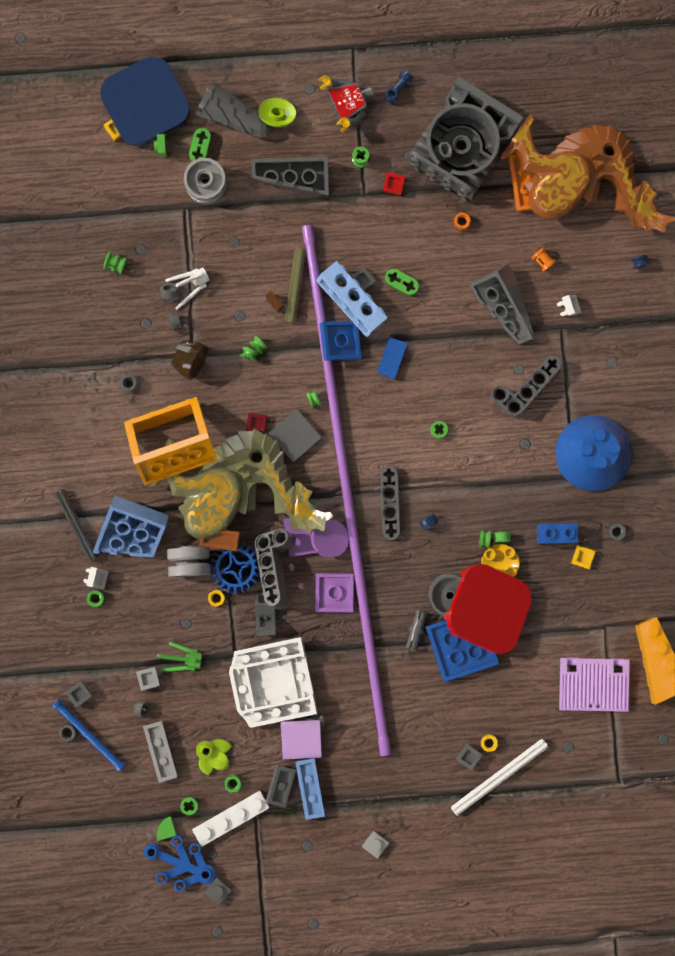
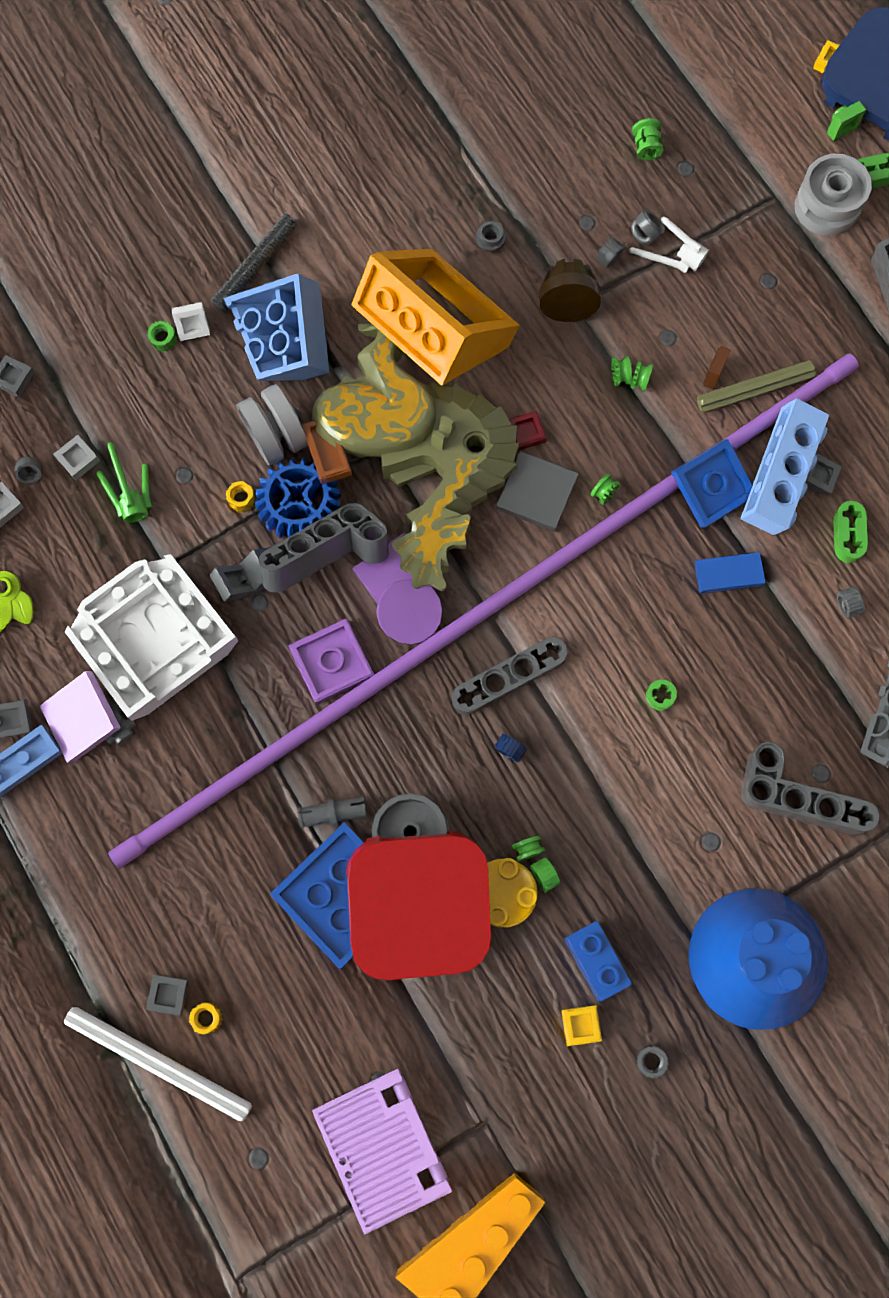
camera: 70 degrees right, 10 degrees down
(440, 305) = (850, 602): none -> dark grey axle

